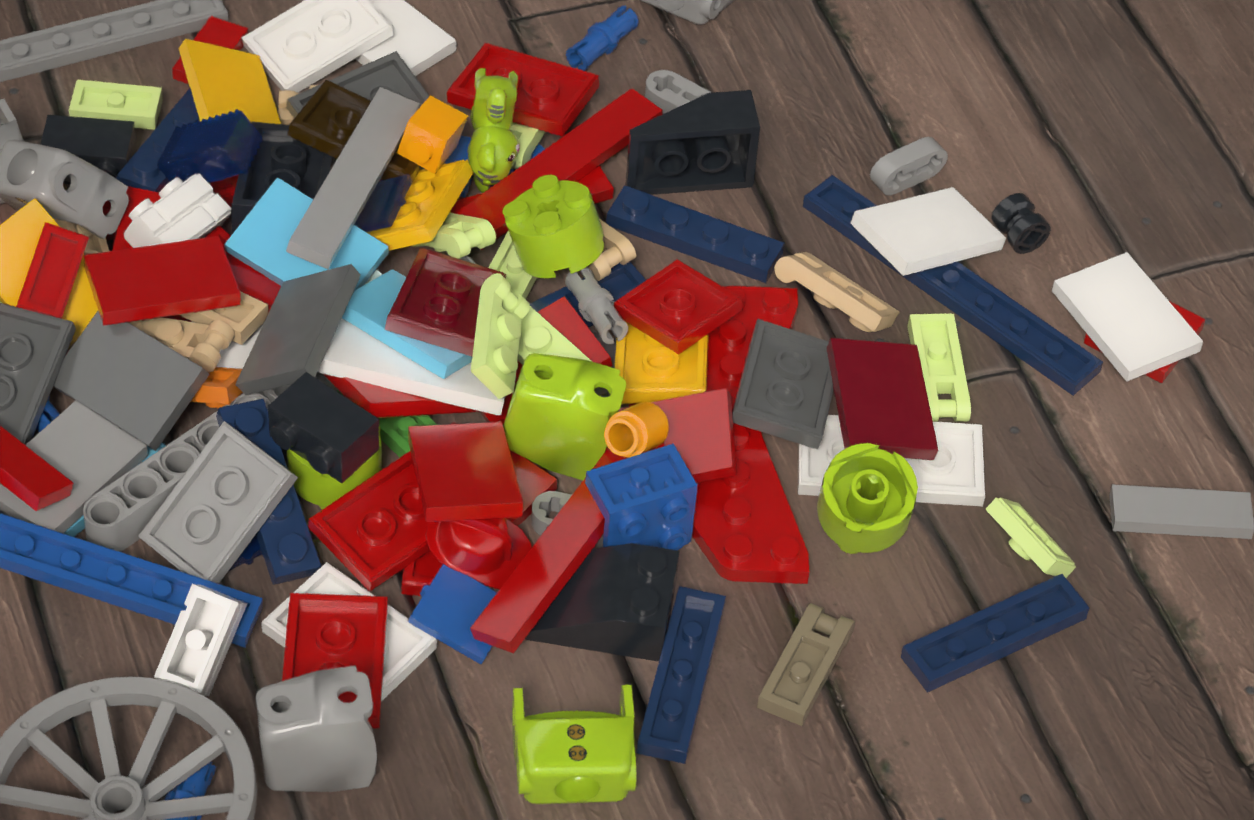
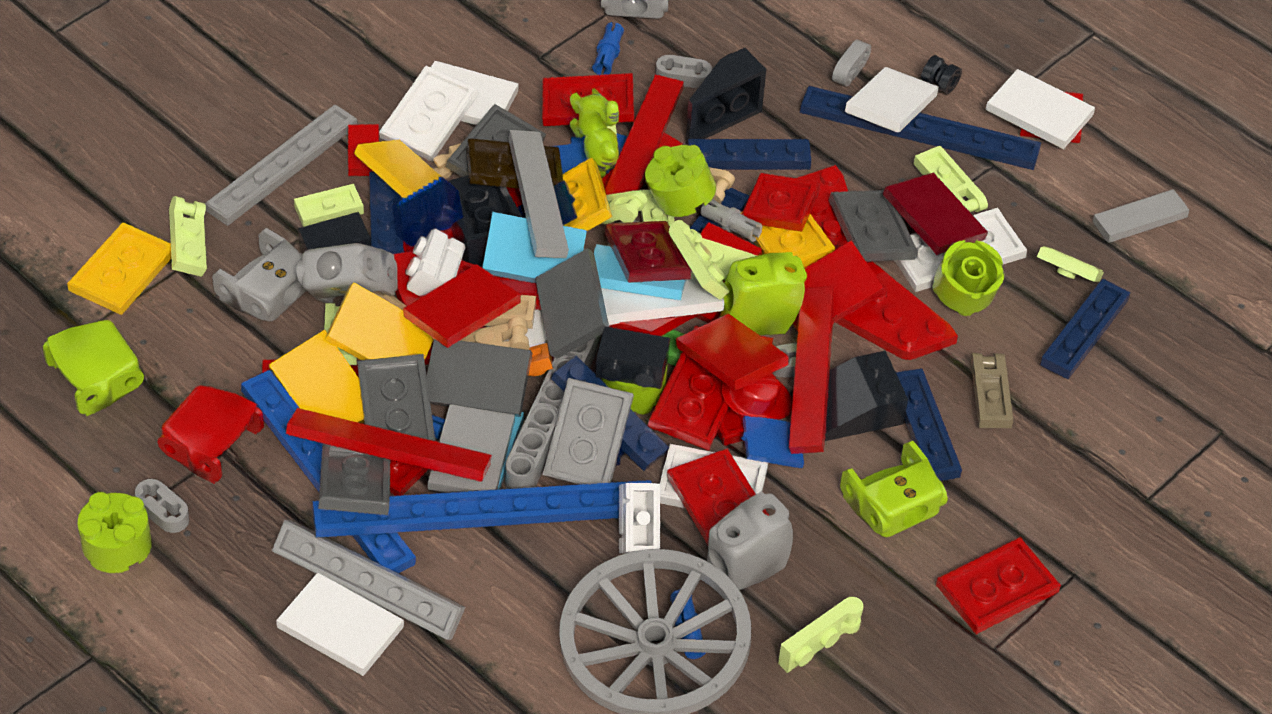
camera: 25 degrees left, 0 degrees up
(52, 271) = (388, 326): red tile -> none
(432, 134) = (563, 148): light orange brick -> none
(636, 429) = (818, 293): light orange brick -> none
(646, 499) = (848, 325): blue bracket -> none
(836, 291) = (860, 157): tan plate -> none

